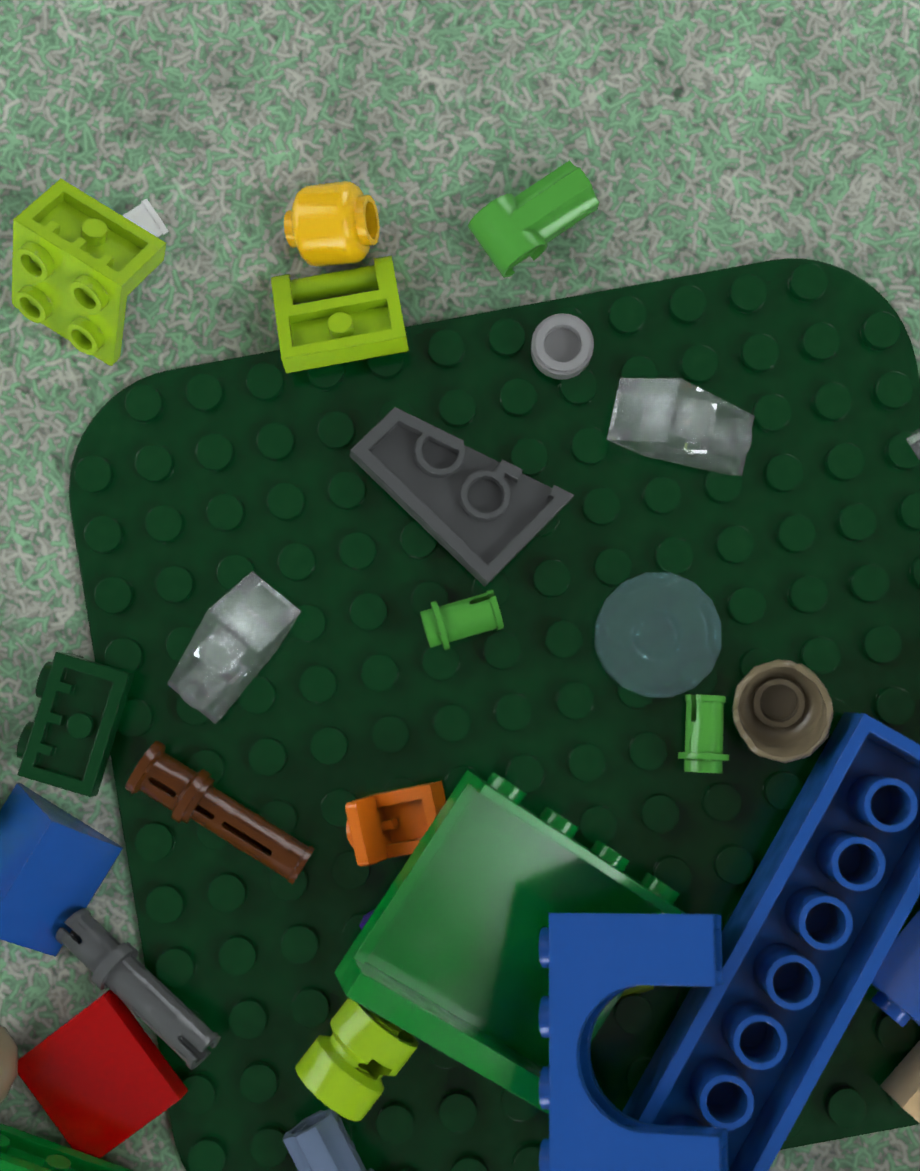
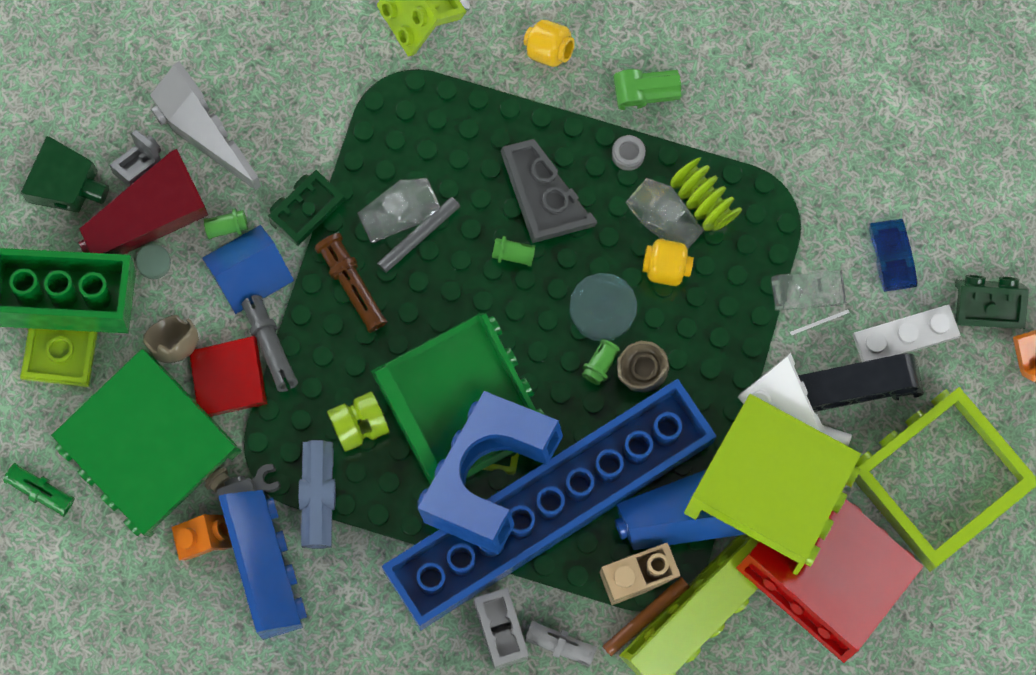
camera: 15 degrees right, 10 degrees down
(287, 671) = (418, 235): none -> dark grey bar
(342, 326) = (529, 86): lime plate -> none
(392, 821) = (427, 324): orange bracket -> none
(729, 507) = (667, 262): none -> yellow head
(736, 359) = (704, 196): none -> lime piece

